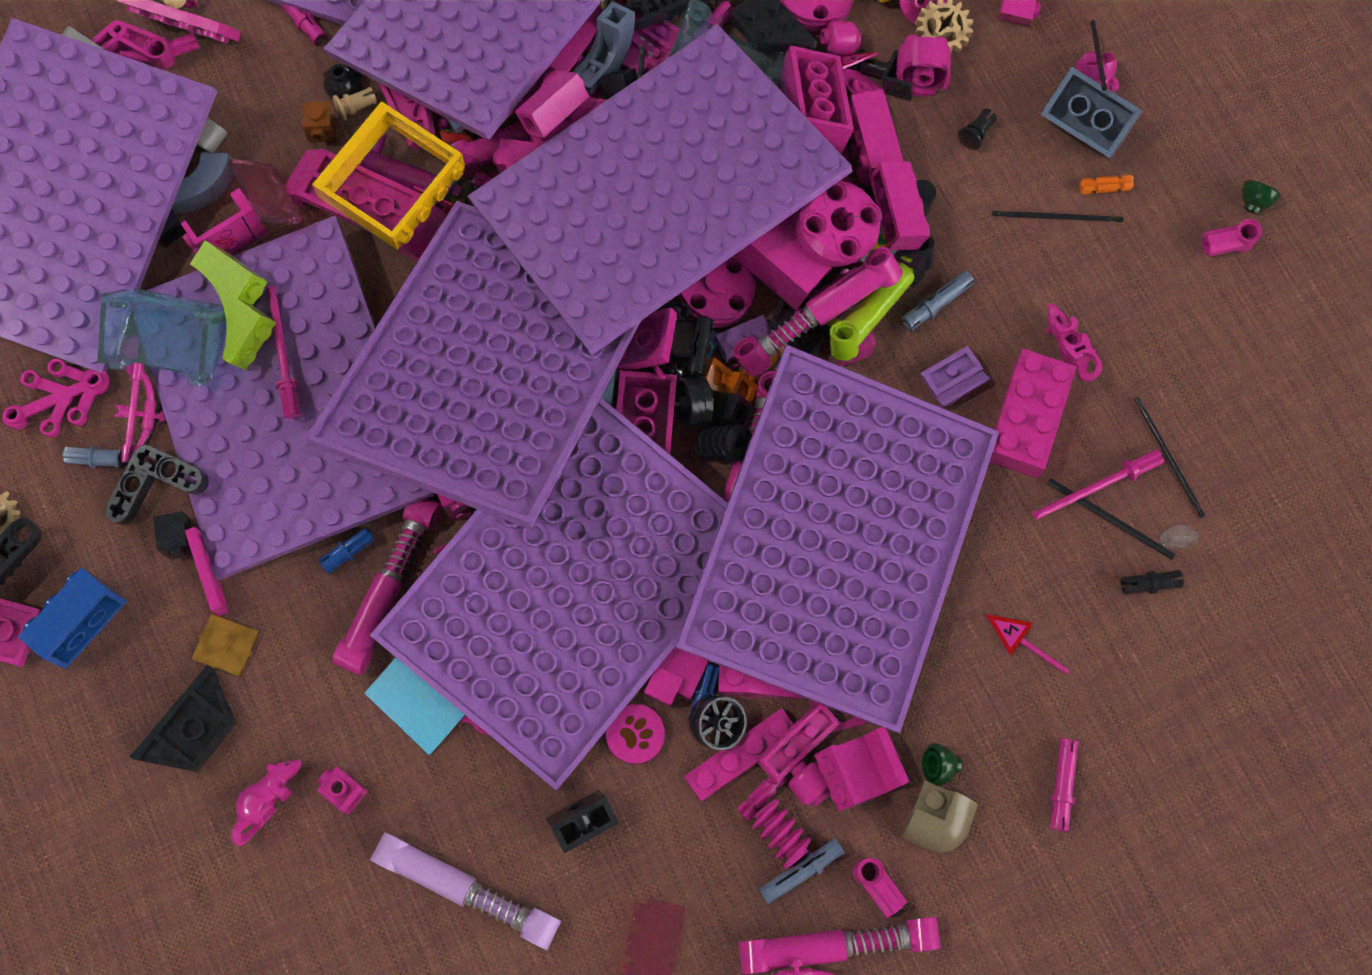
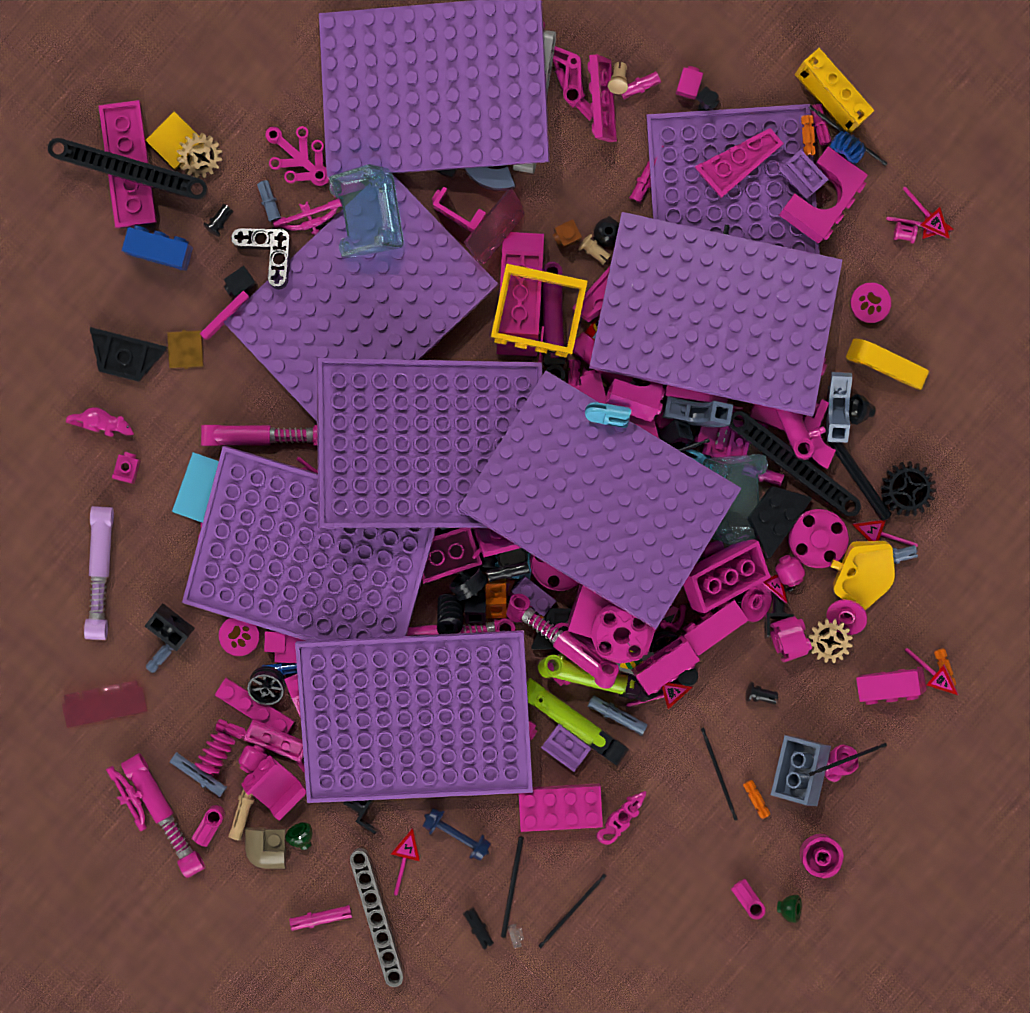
camera: 70 degrees right, 15 degrees up
(84, 533) = (217, 222): none -> black pin
(238, 291) = (415, 247): lime arch -> none
(288, 385) = (362, 313): dark pink piece -> none
(346, 550) = (277, 398): blue axle -> none
(555, 133) = (608, 414): none -> medium azure arm
(617, 854) = (159, 658): none -> sand blue axle
(878, 832) = (241, 815): none -> tan pin
(935, 666) = (362, 809): none -> black bracket
(939, 232) = (671, 692): none -> piece
(961, 332) = (575, 723): none -> lime piece
(1044, 535) = (479, 848): none -> dark blue piece
(1104, 703) = (377, 927): none -> light grey beam
(1131, 469) = (551, 889): dark pink piece -> none
(1206, 134) = (832, 859): none -> dark pink brick

